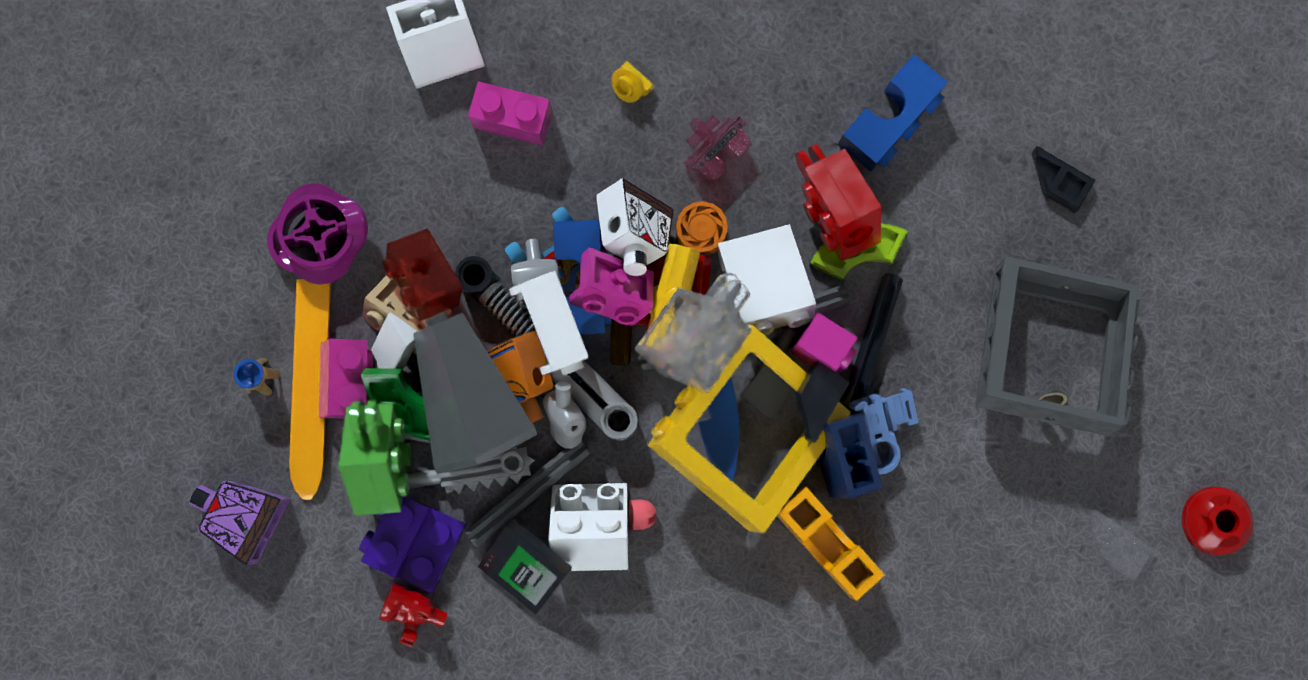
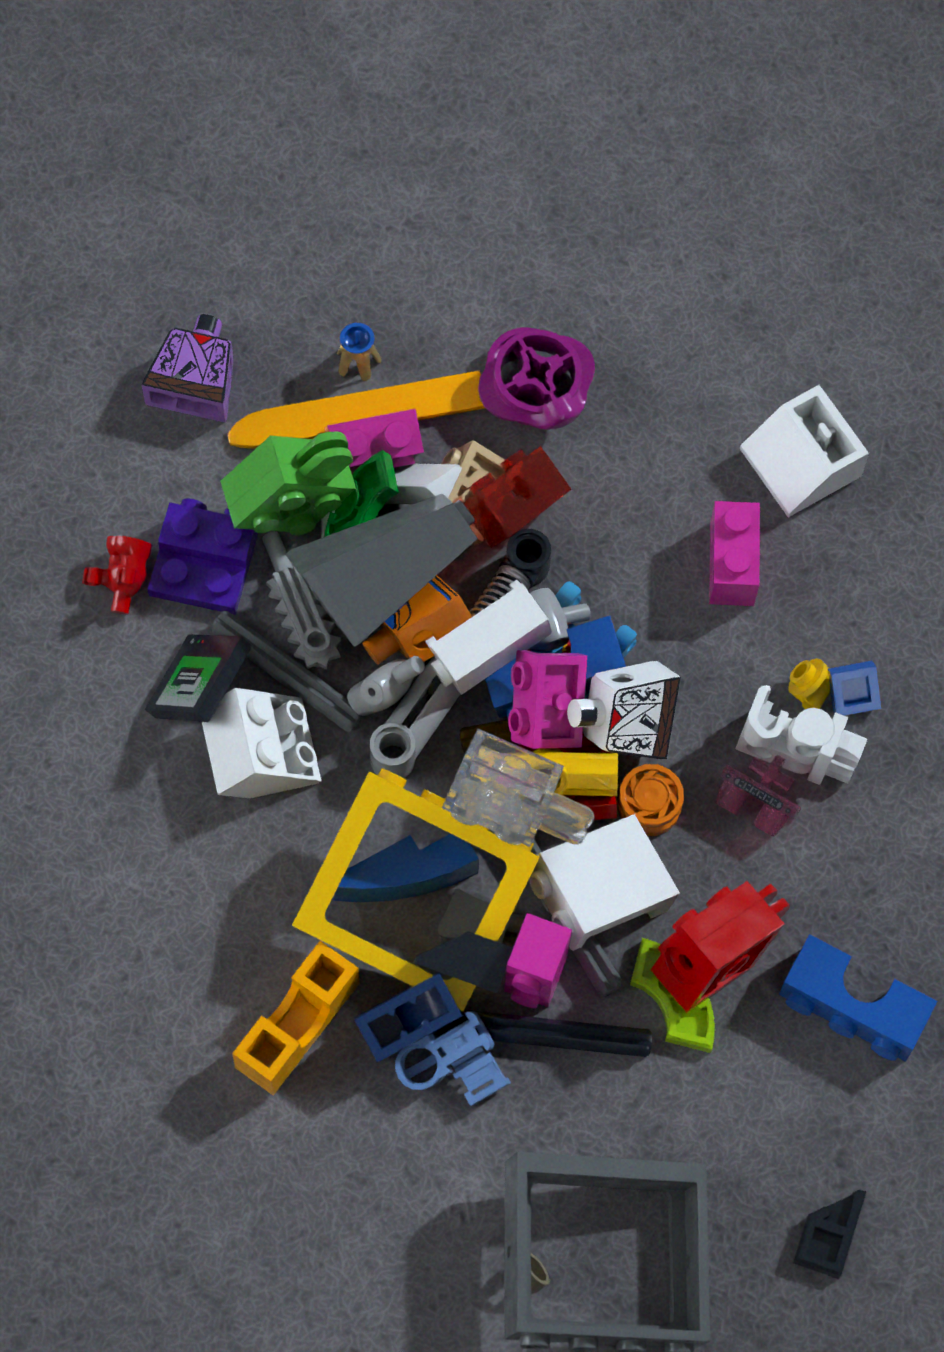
camera: 75 degrees right, 15 degrees down
(641, 514) = (286, 802): coral hinge -> none
(644, 51) = (854, 688): none -> blue plate
(689, 89) = (807, 742): none -> white hips

